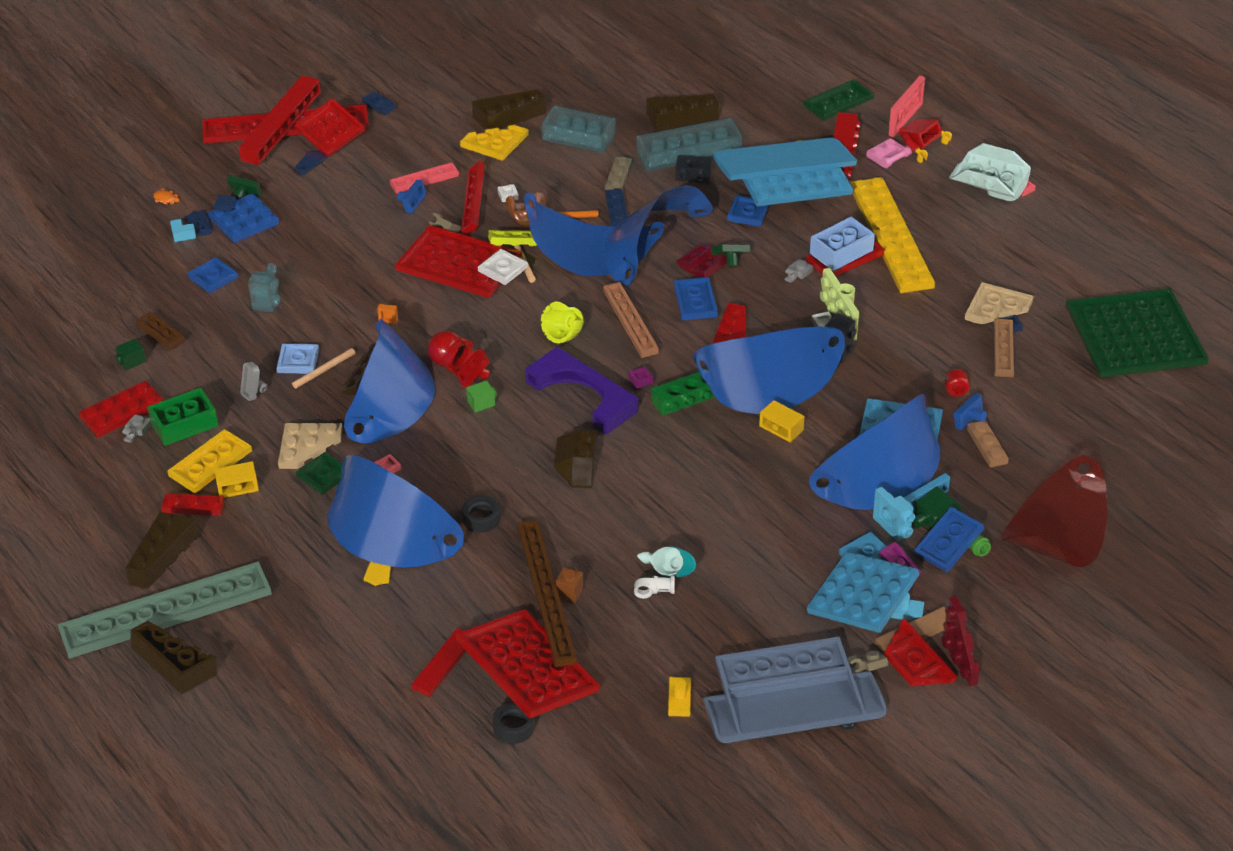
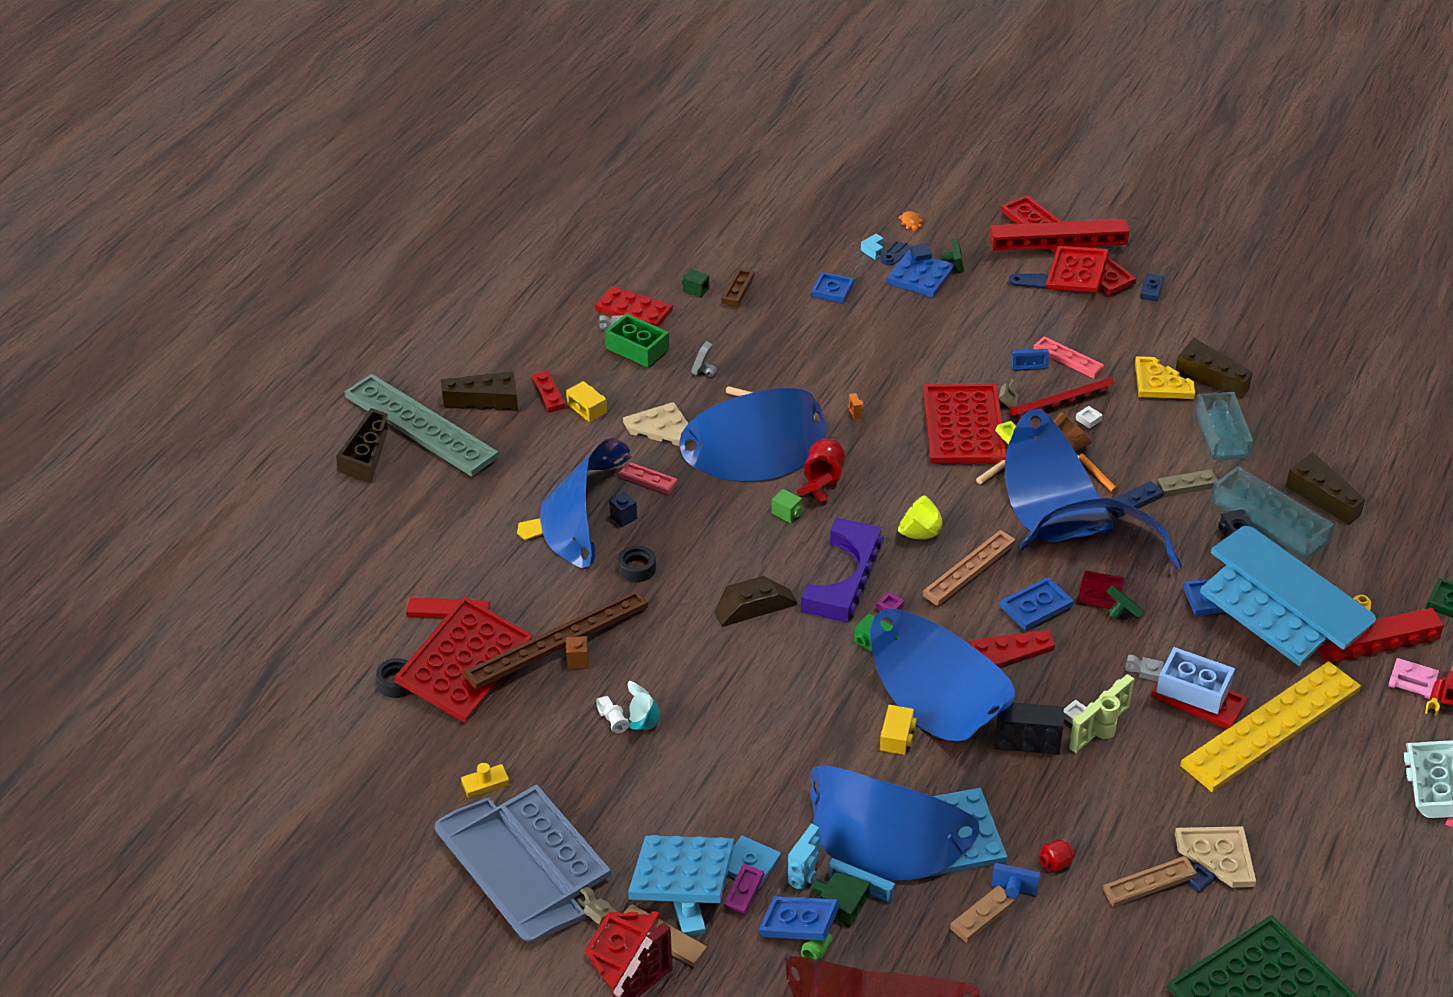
camera: 65 degrees right, 0 degrees up
(198, 467) = (602, 377): yellow plate -> none
(263, 289) = (820, 319): clear light blue brick -> none
(297, 358) = (762, 377): light blue tile -> none
(321, 473) = (639, 447): dark green tile -> none
(502, 267) = (971, 451): white tile -> none

